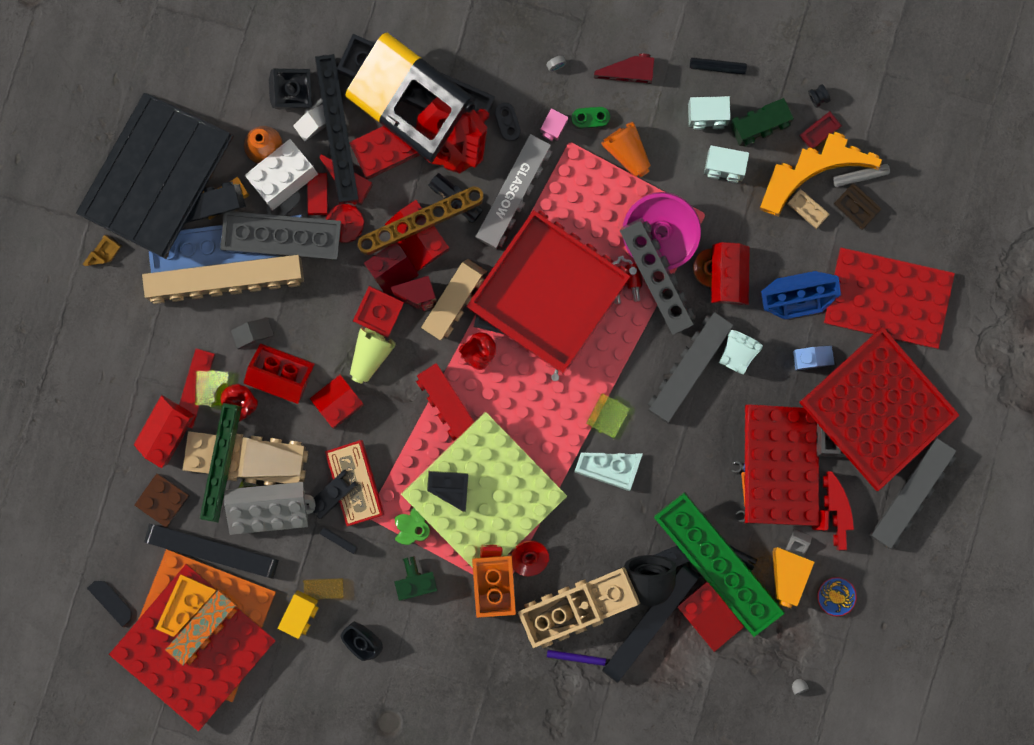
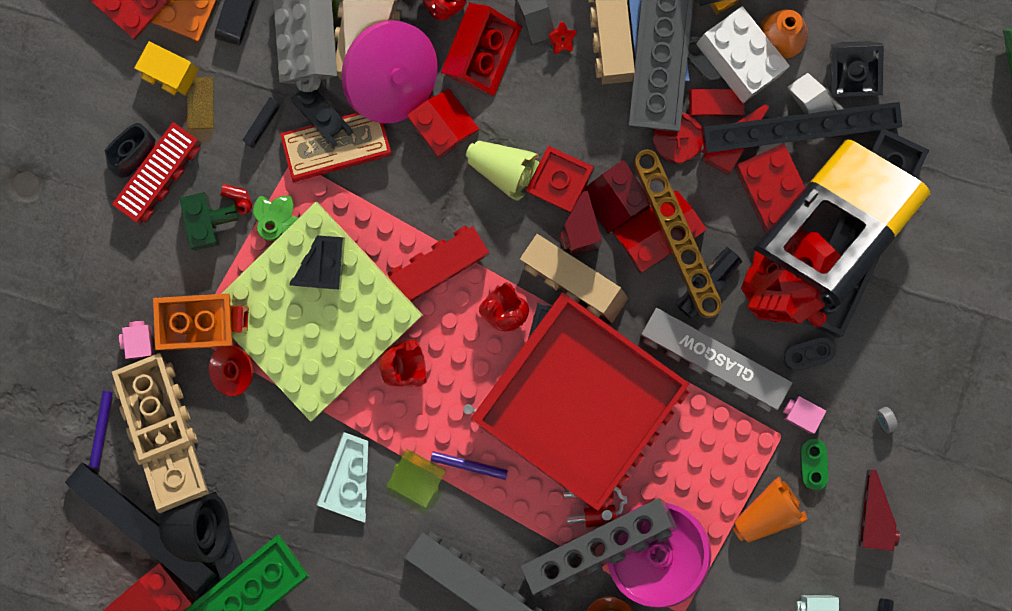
camera: 90 degrees right, 0 degrees up
(269, 317) = (556, 35): none -> red plate
(299, 441) = (389, 71): none -> dark pink dish
(379, 620) = (157, 173): none -> red brick
(395, 556) = (240, 196): none -> red arm
(508, 631) = (137, 341): none -> bright pink brick
(523, 425) = (403, 365): none -> red hair
(597, 375) = (469, 465): none -> dark purple bar

